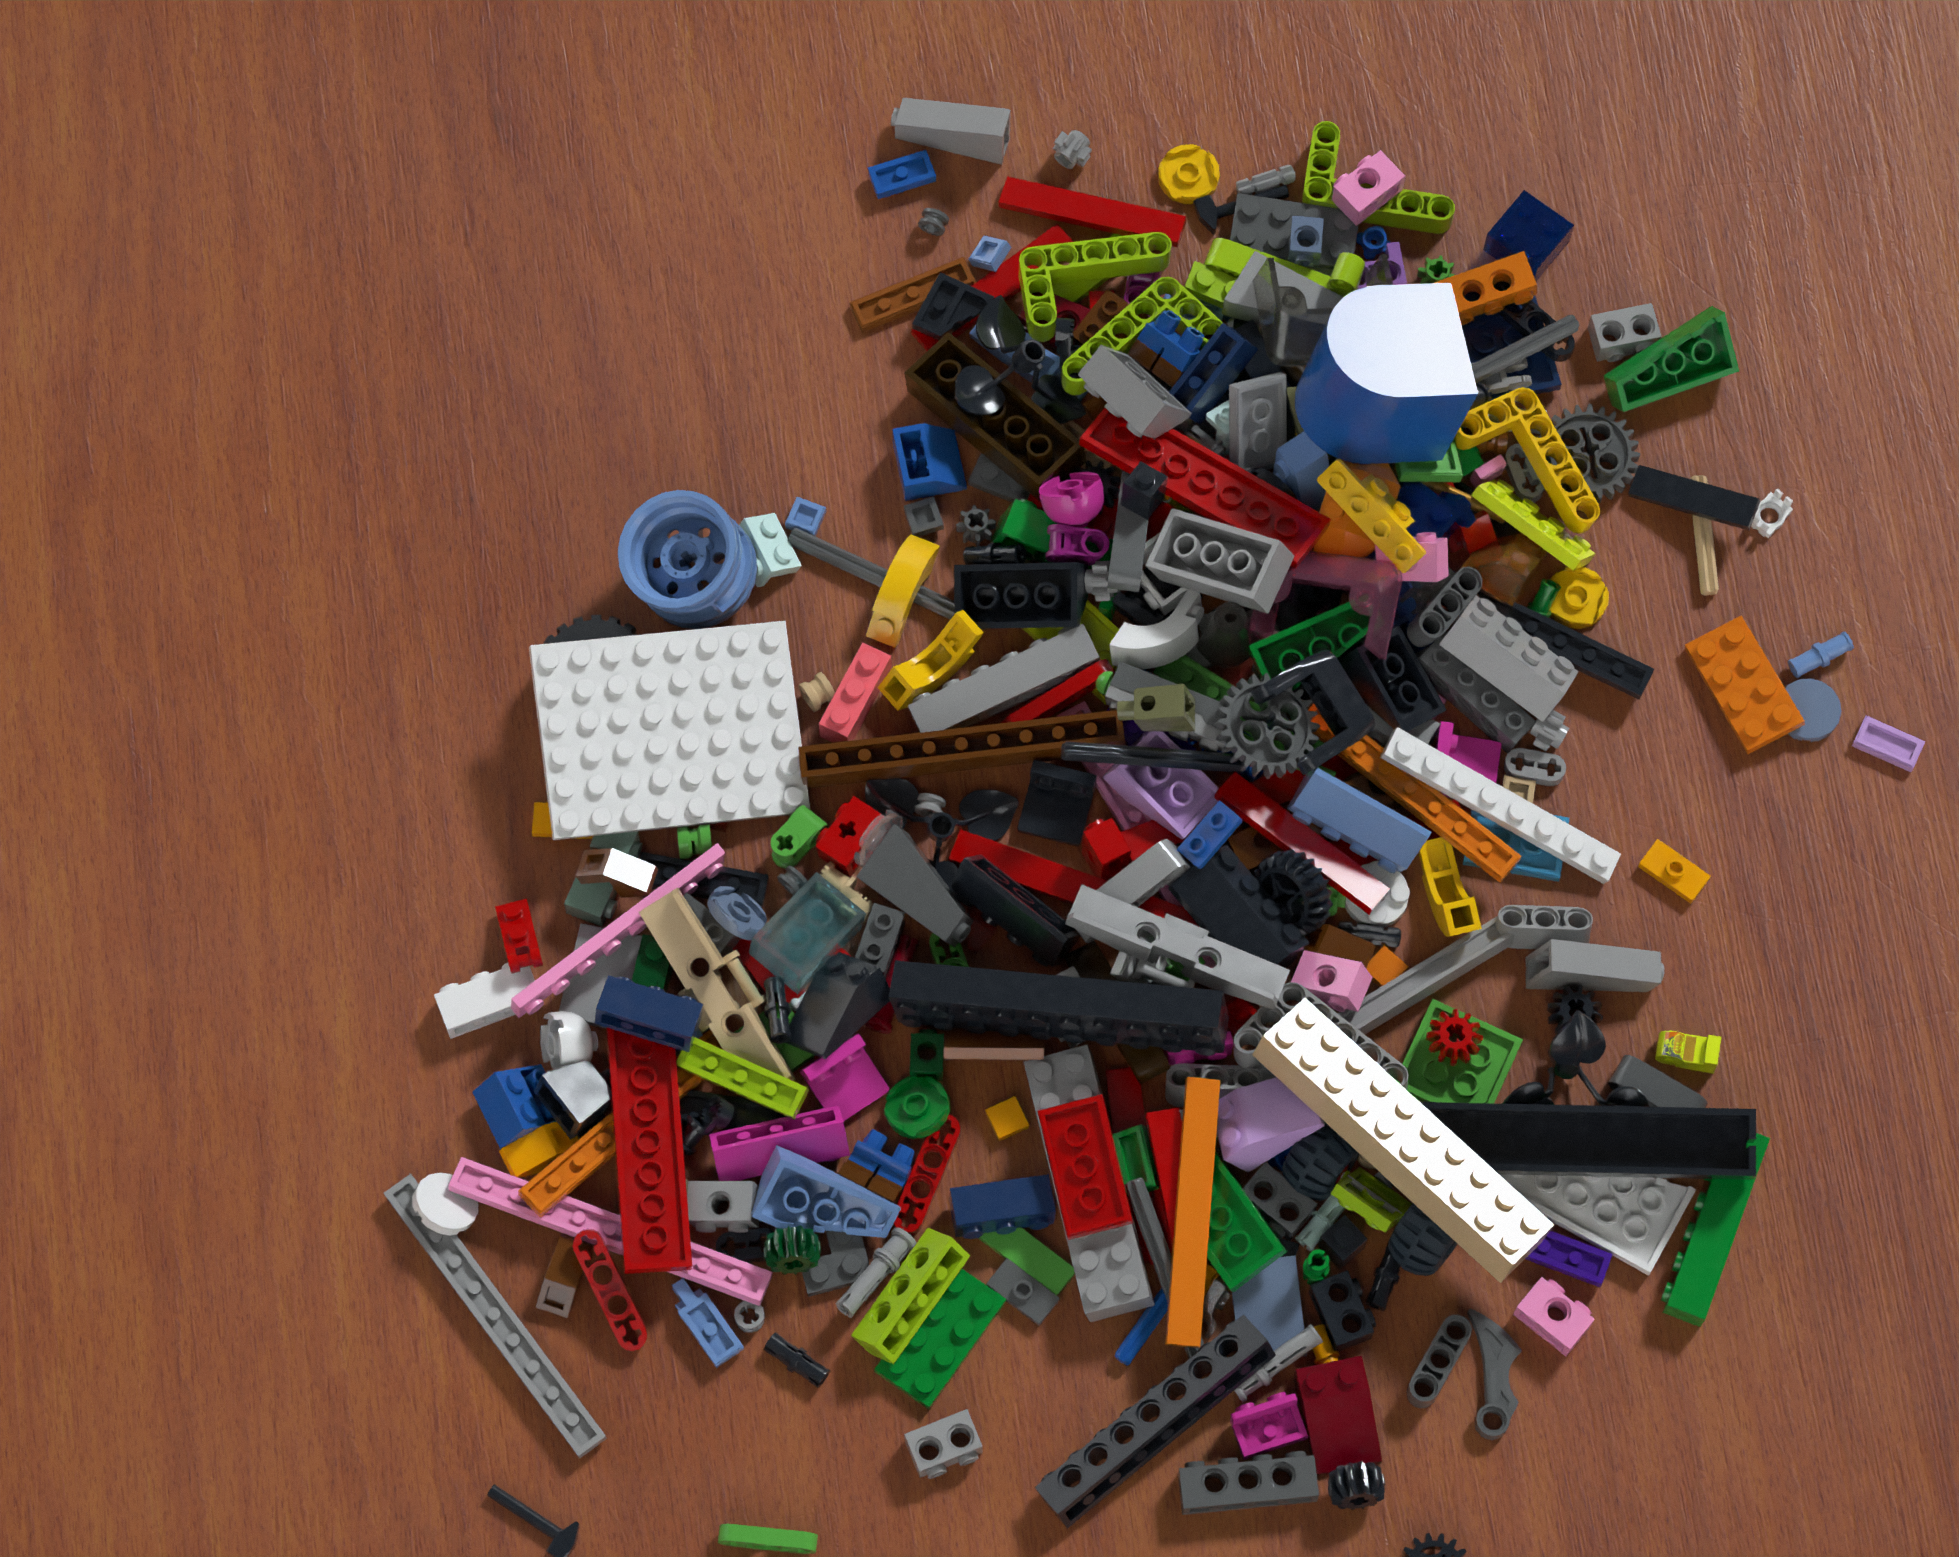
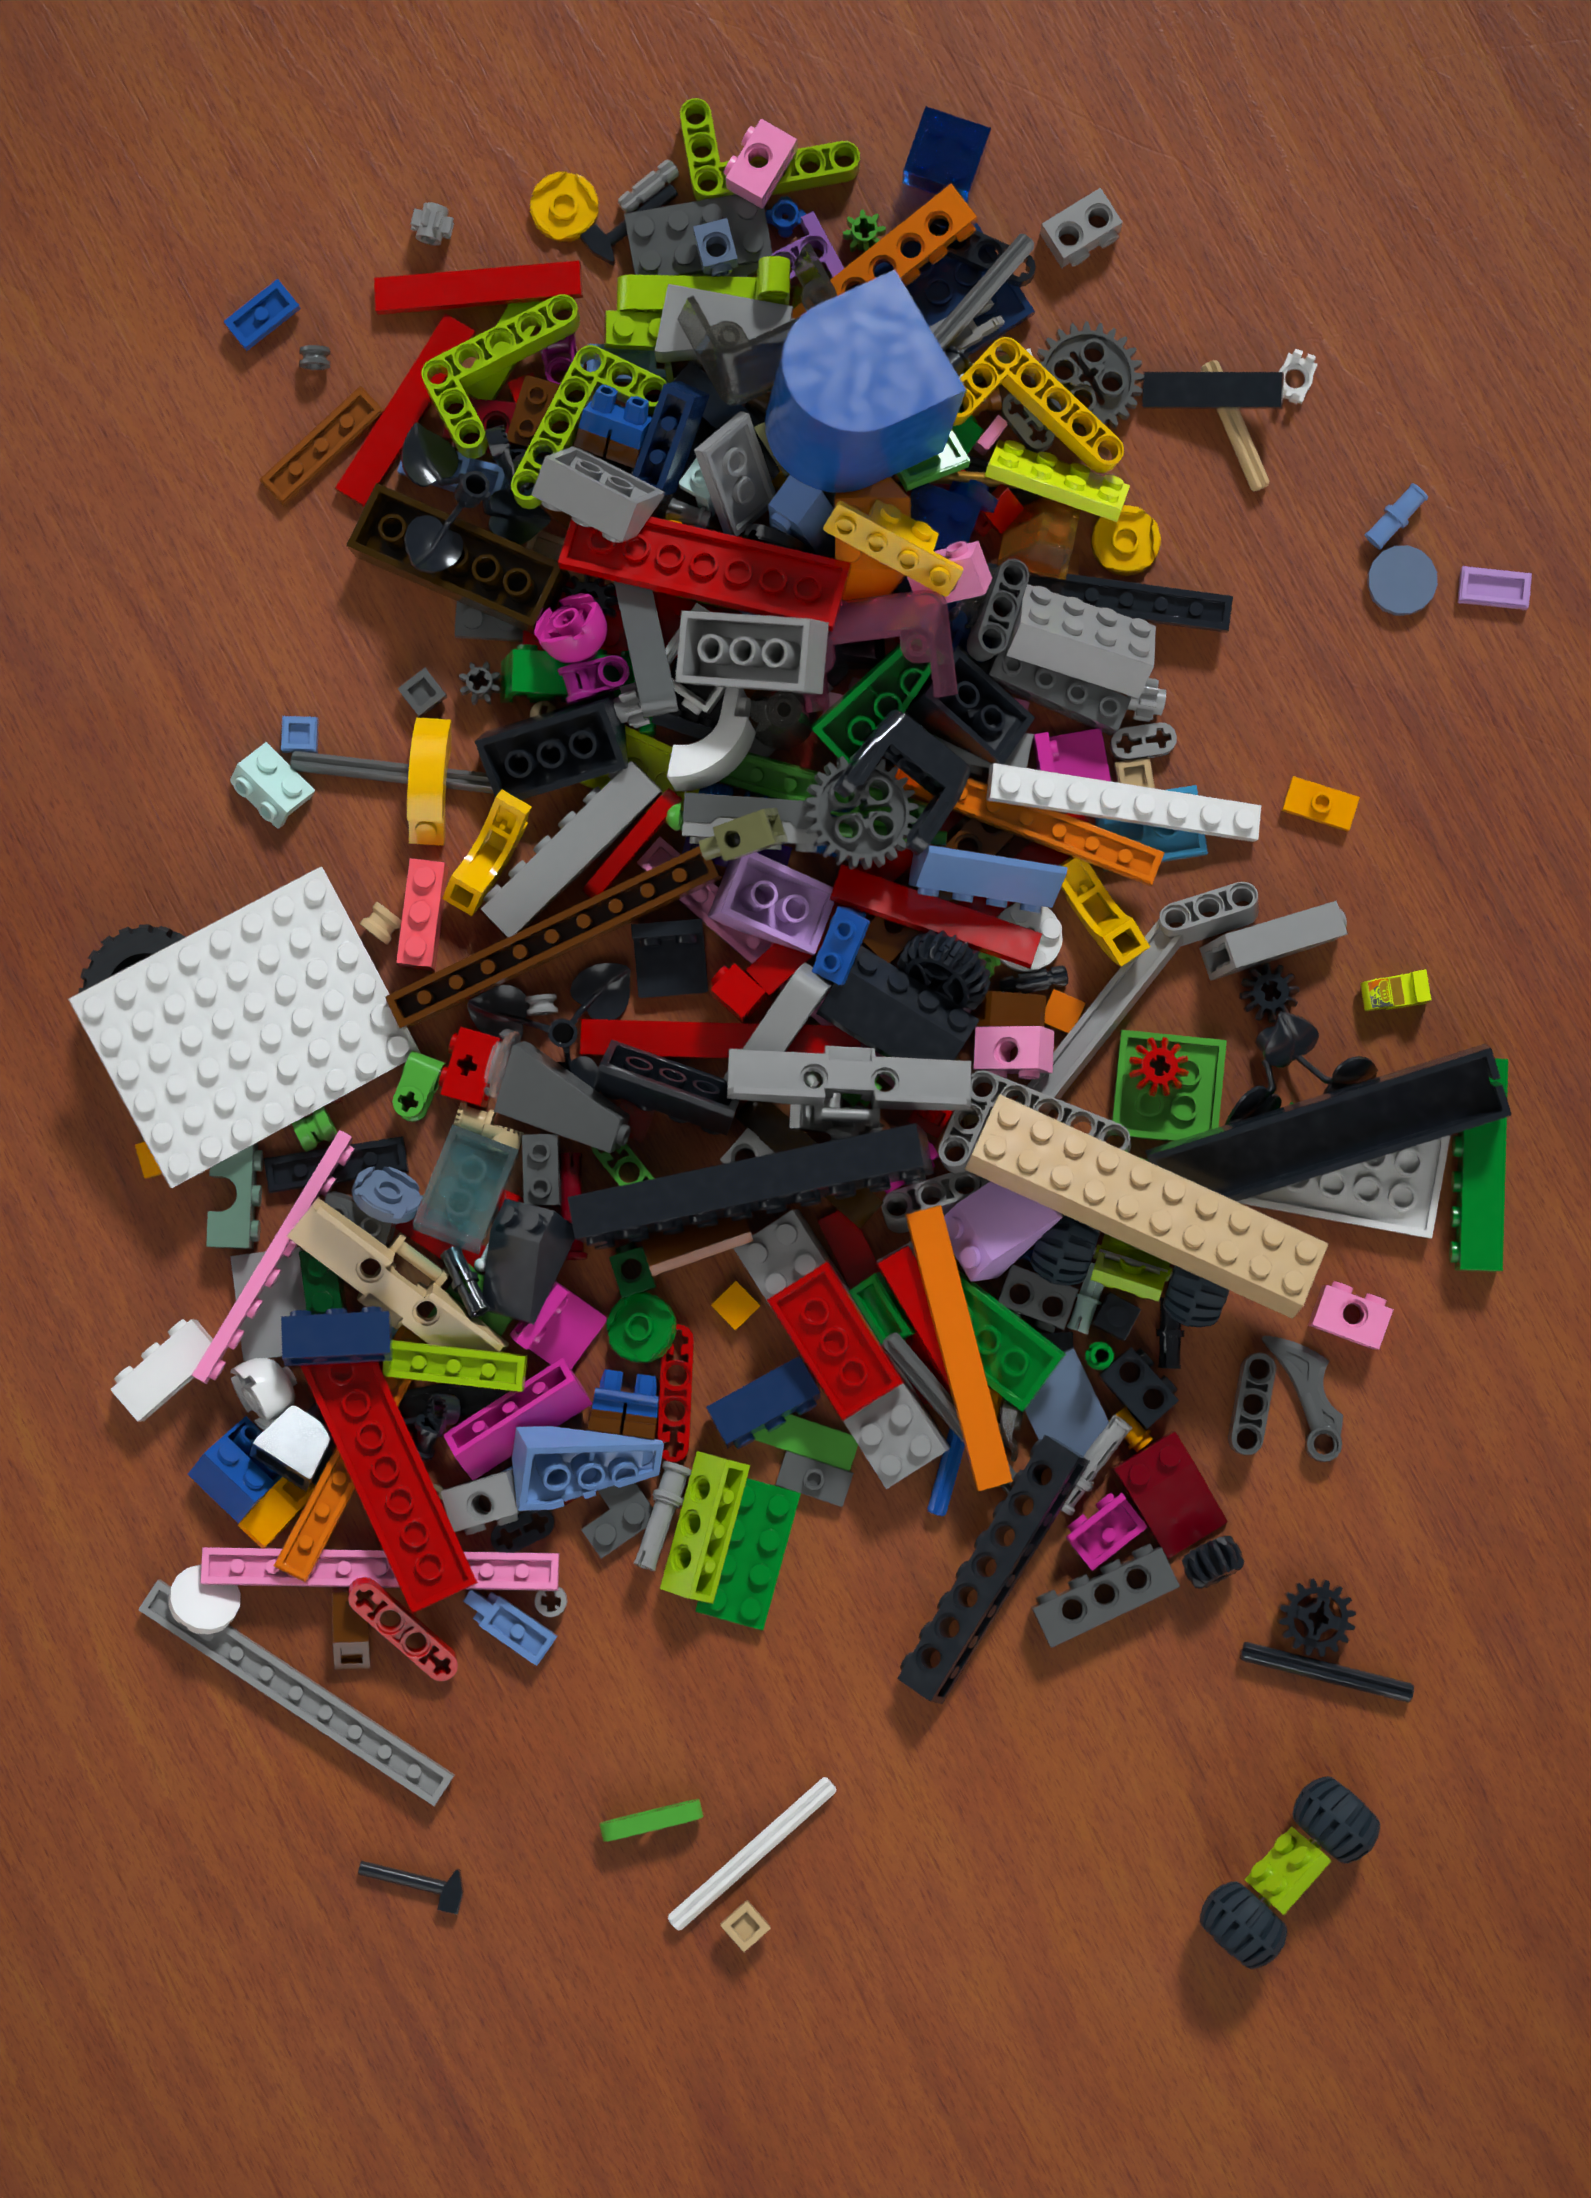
camera: 15 degrees left, 15 degrees up
(518, 935) = (173, 1295): red plate -> none
(624, 872) = (251, 1195): slope -> none
(648, 538) = (146, 826): medium blue wheel -> none
(792, 880) = (430, 1134): dark grey bush -> none
(792, 1250) = (570, 1526): dark green gear -> none
(796, 1360) = (614, 1629): black pin -> none
(928, 461) = (406, 630): blue slope -> none
(939, 1436) = (784, 1657): light grey brick -> none
(949, 307) = (366, 451): black wing -> none
(954, 127) = (298, 244): light grey slope -> none
(989, 253) = (386, 372): medium blue tile -> none
(995, 554) = (511, 711): black pin -> none
(1144, 490) = (645, 600): black brick -> none
(1149, 756) = (746, 888): black axle -> none
(1544, 597) = (1094, 557): green pin -> none
(1572, 1258) = (1353, 1248): dark purple plate -> none
(1657, 1086) = (1384, 1047): dark grey beam -> none
(1677, 362) = (1146, 247): green wedge -> none
(1744, 684) = (1329, 577): orange plate -> none

